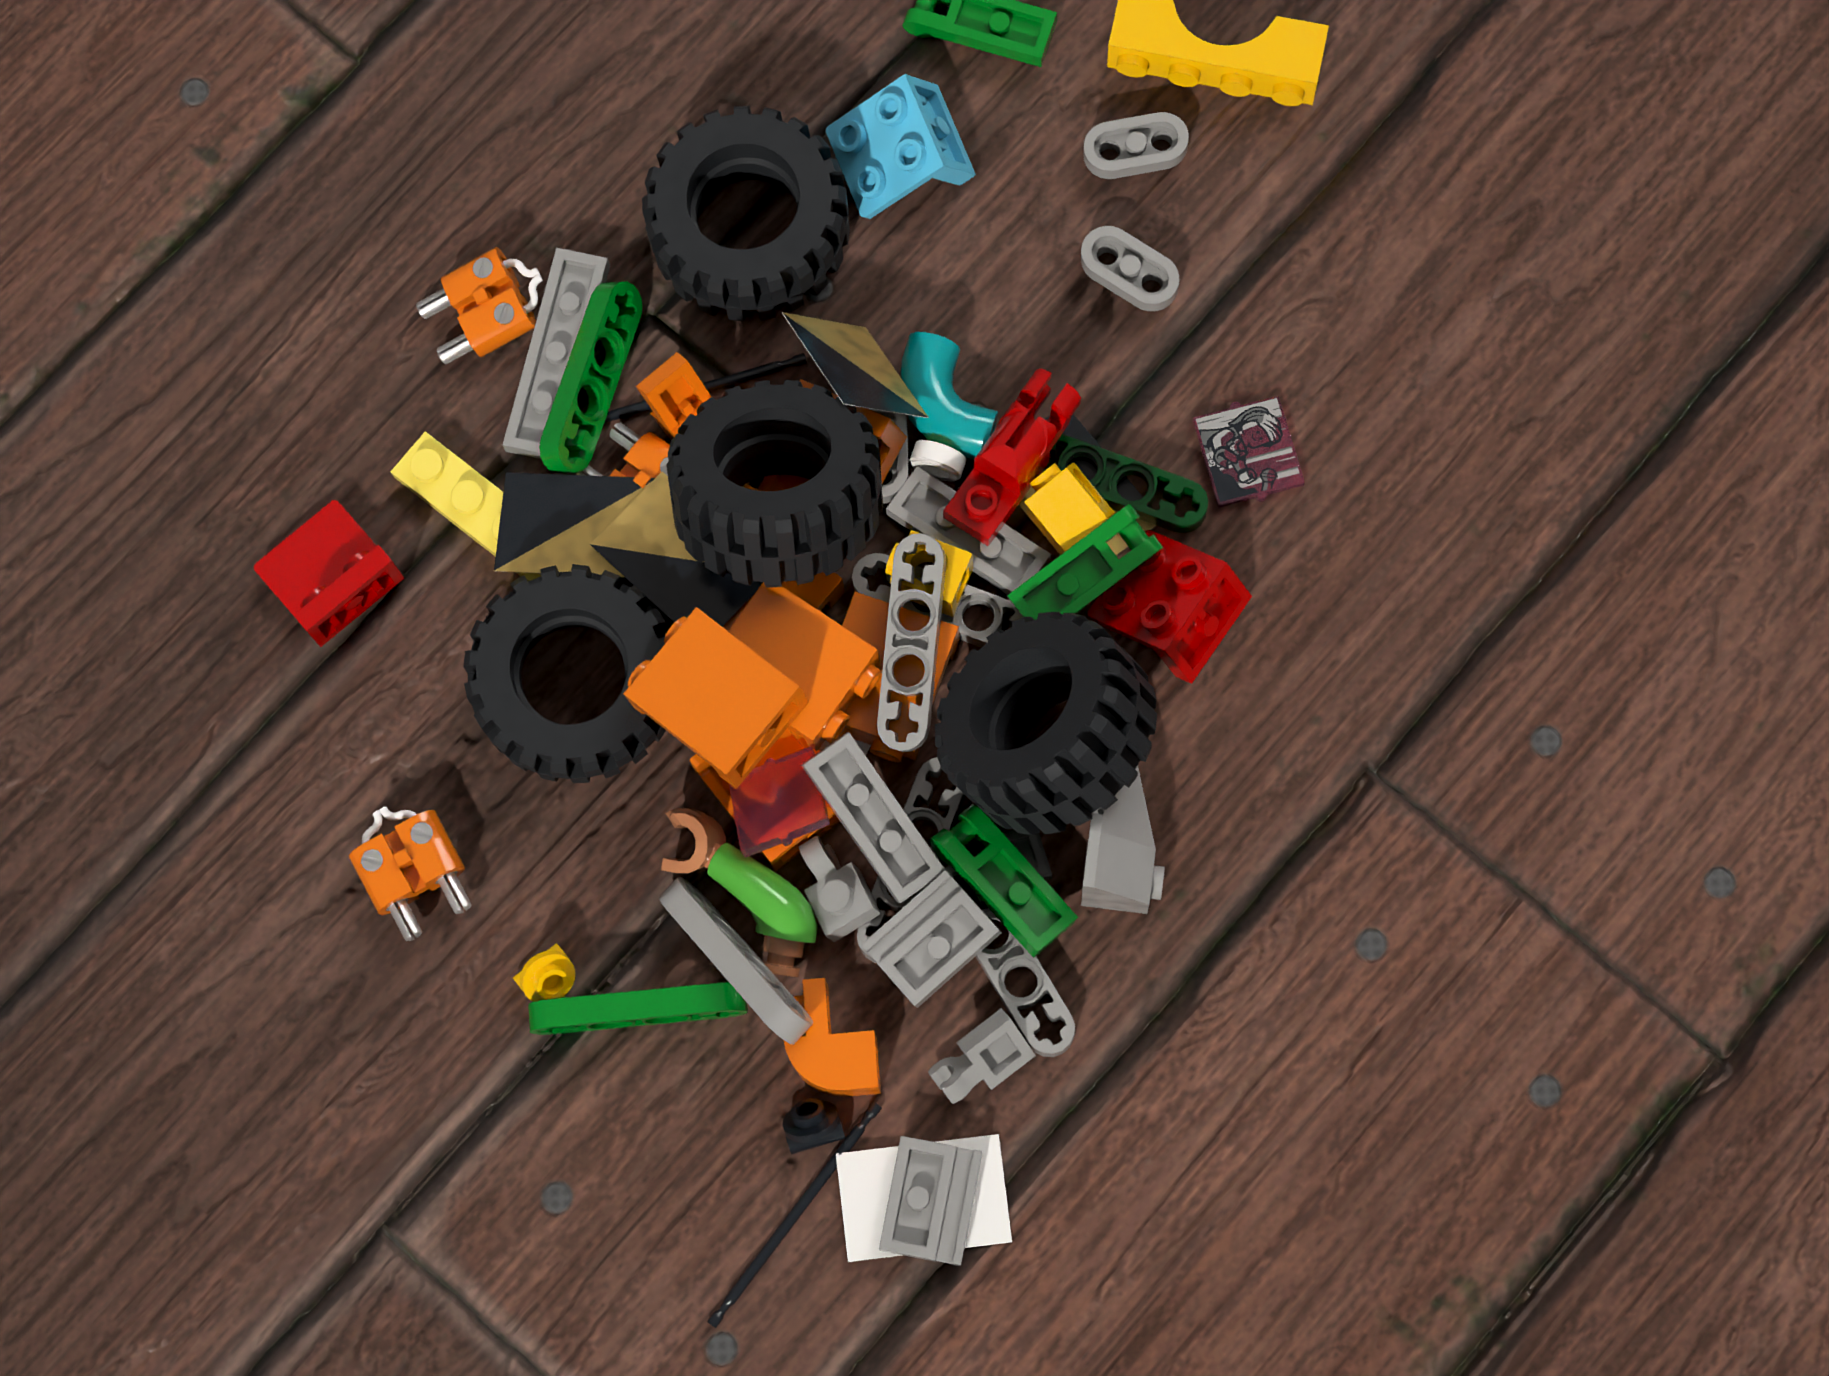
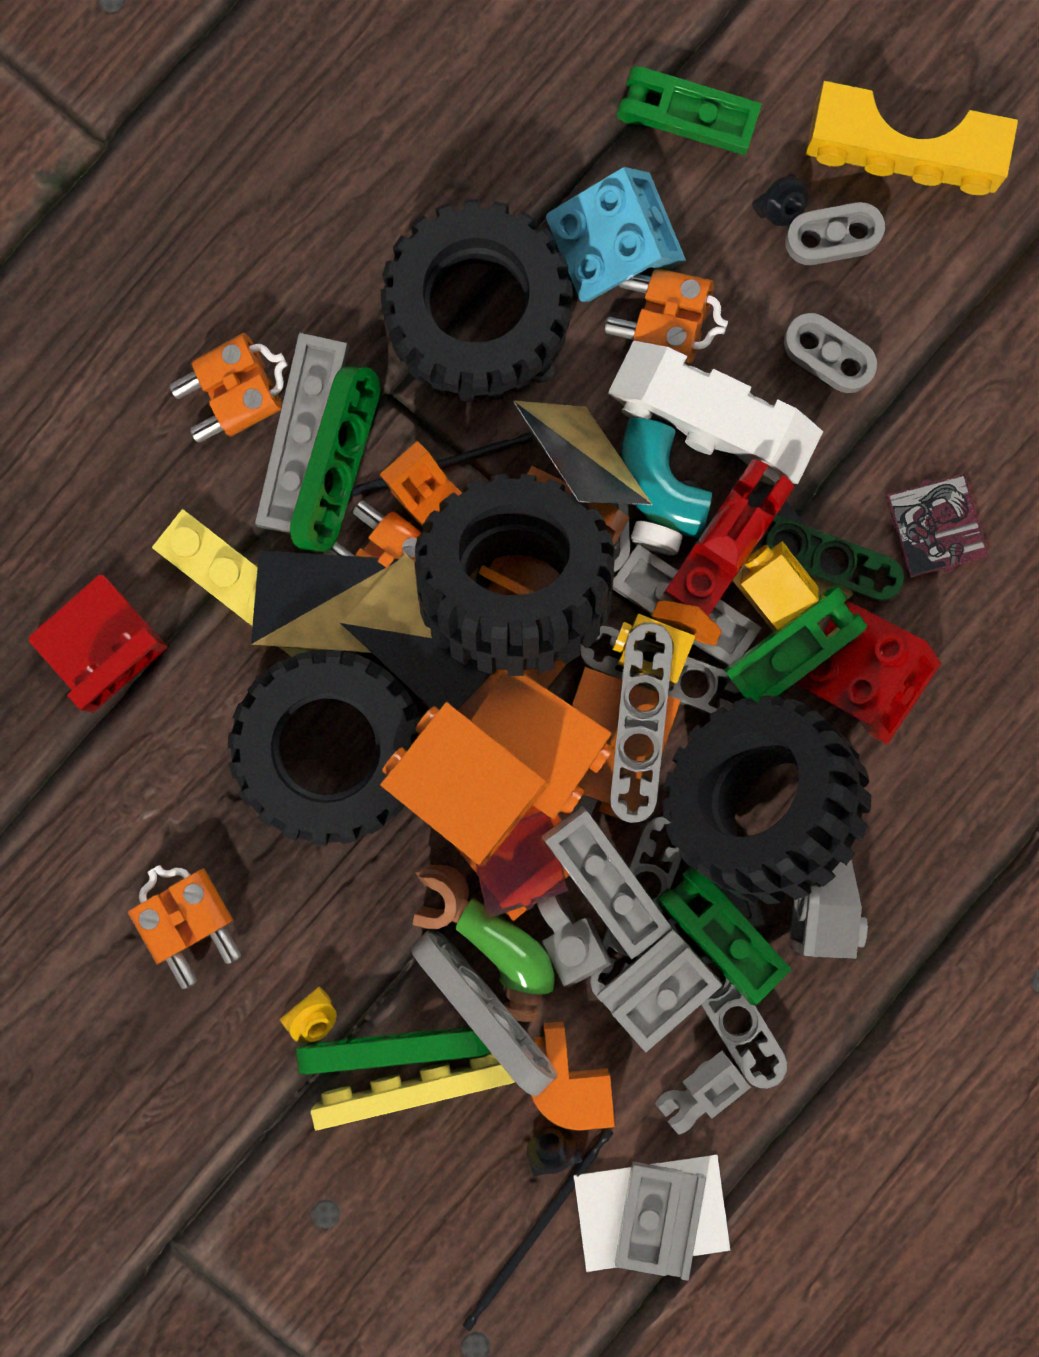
camera: 10 degrees left, 10 degrees up
(633, 1057) = (392, 1095): none -> light yellow plate
(957, 230) = (672, 312): none -> orange piece
(971, 539) = (688, 619): none -> orange tile
(1001, 325) = (714, 411): none -> white brick
(1079, 111) = (782, 201): none -> black plate

